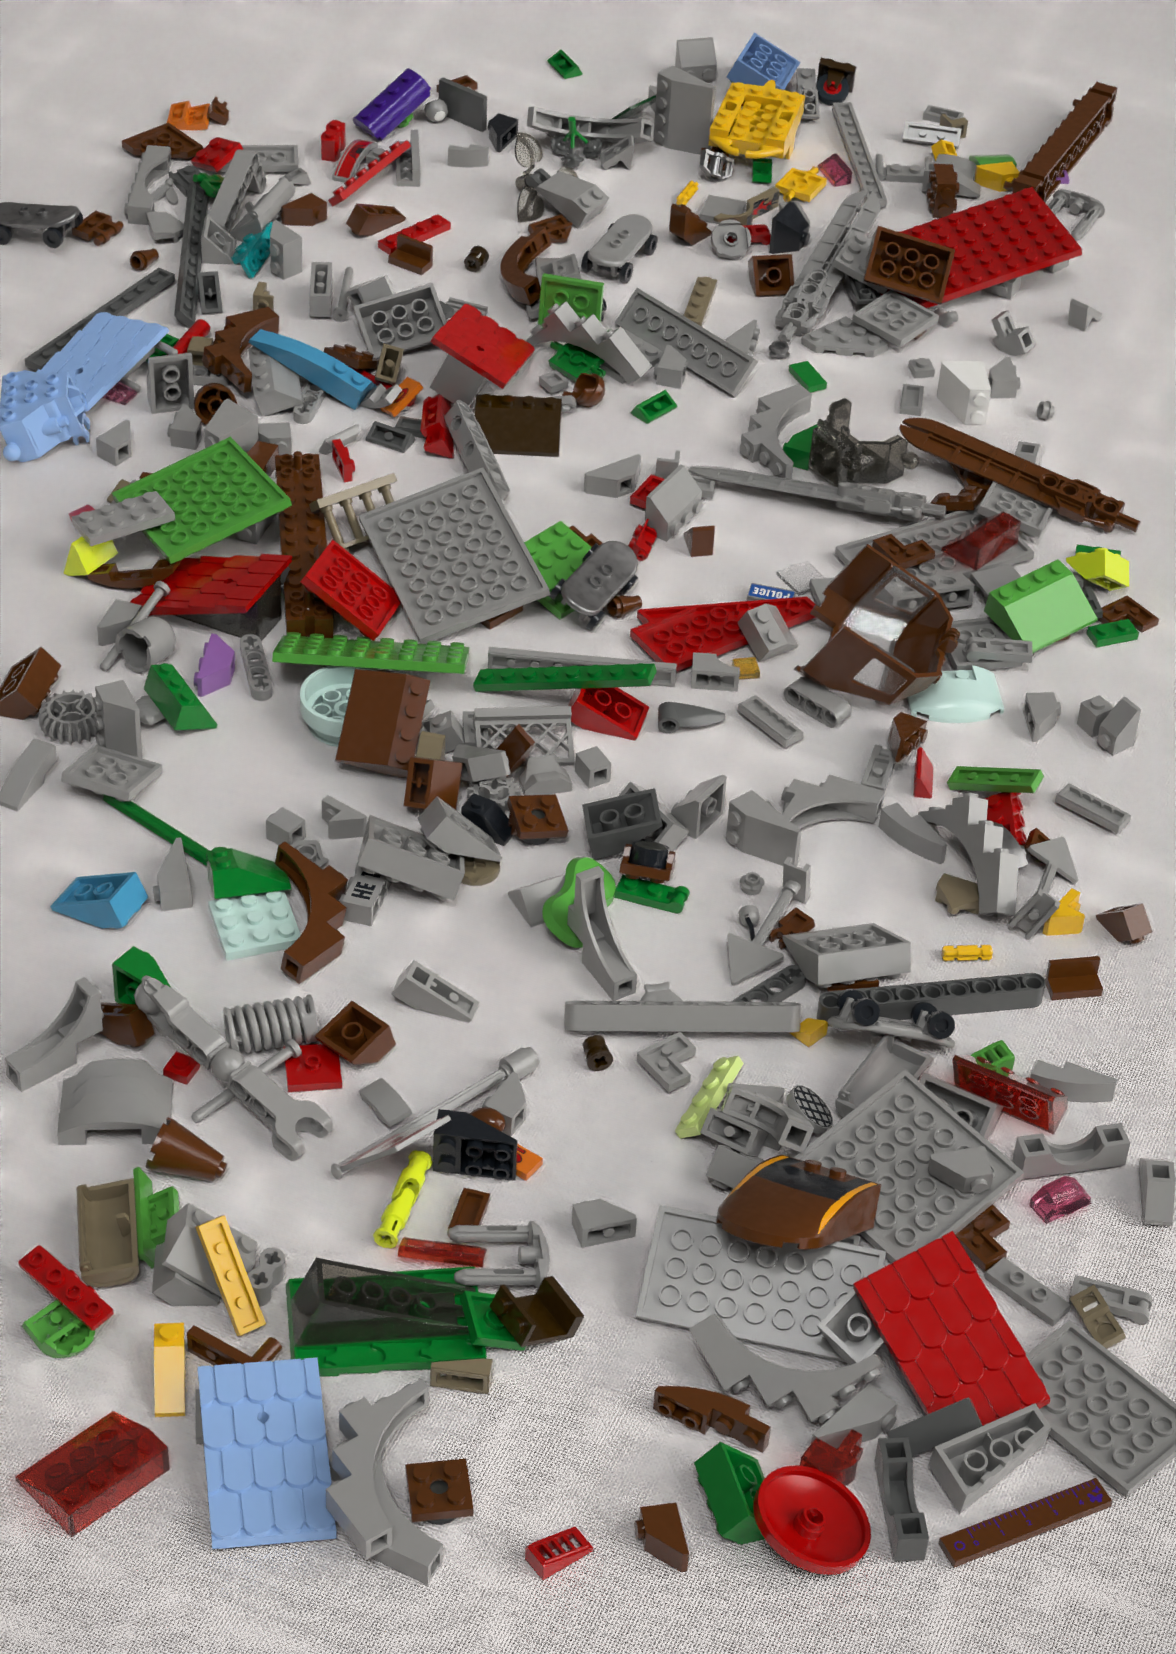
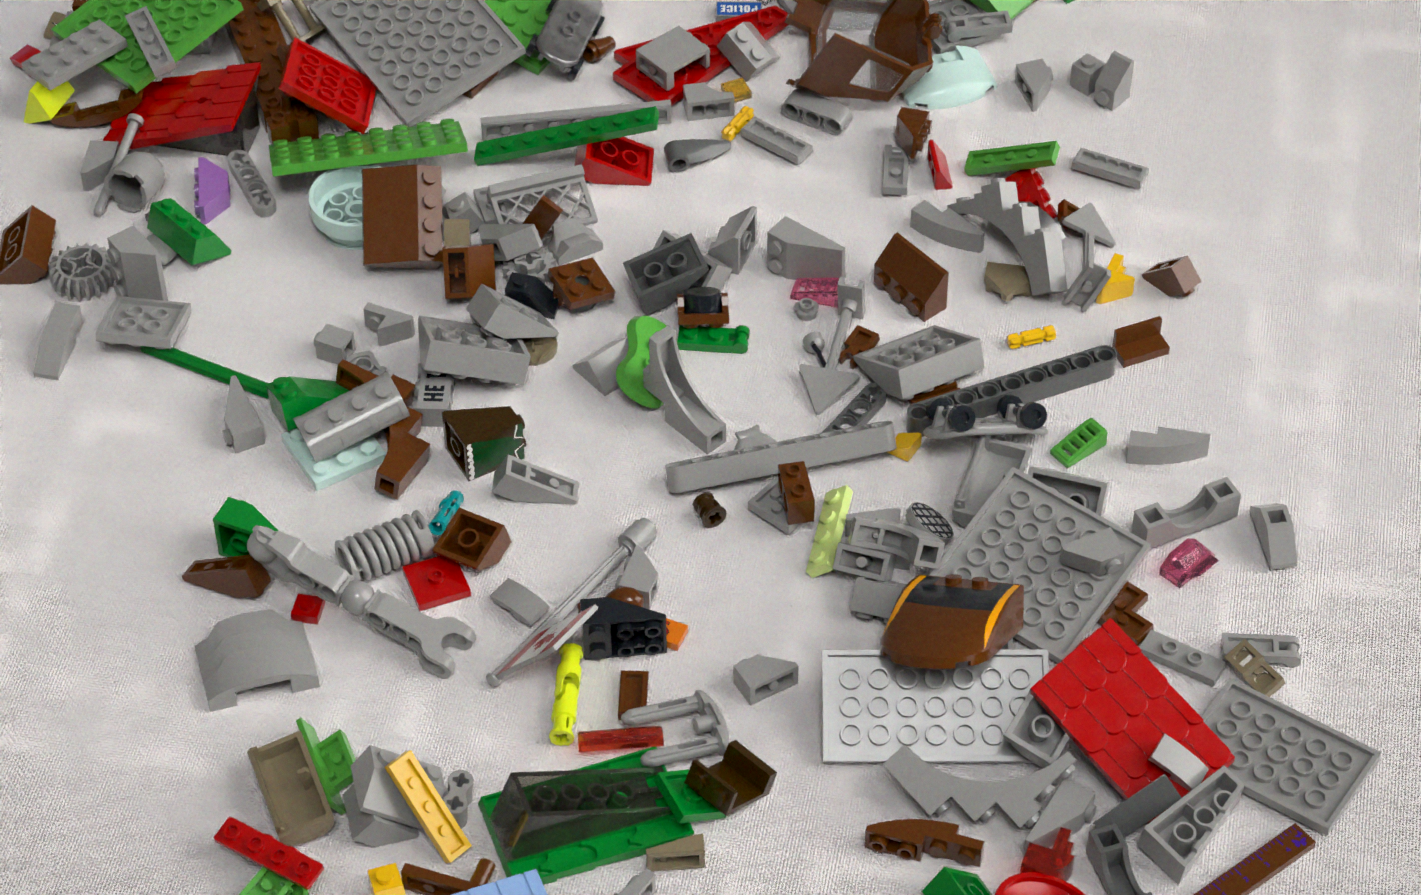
camera: 10 degrees left, 5 degrees up
(57, 1045) = (180, 611): light grey arch -> none
(102, 899) = (175, 454): dark azure slope -> none
(184, 1154) = (342, 695): reddish brown cone -> none
(196, 519) = (151, 41): none -> light grey plate
(275, 896) = (351, 417): none -> light grey container
(291, 1049) = (413, 568): light grey bar -> none
(336, 1004) = (446, 503): none -> teal pin
(396, 939) = (483, 438): none -> dark brown slope
(592, 767) = (618, 221): light grey brick -> none
(684, 1052) = (796, 493): none -> reddish brown brick
(689, 620) = (670, 53): none -> light grey panel
(732, 701) = (737, 123): none -> yellow axle
(772, 870) = (824, 291): none -> clear pink slope
(831, 801) = (859, 210): light grey arch -> none
(862, 873) = (912, 278): none -> reddish brown slope
(989, 1390) = (1179, 762): none -> slope
(1020, 1097) = (1125, 470): clear red slope -> none

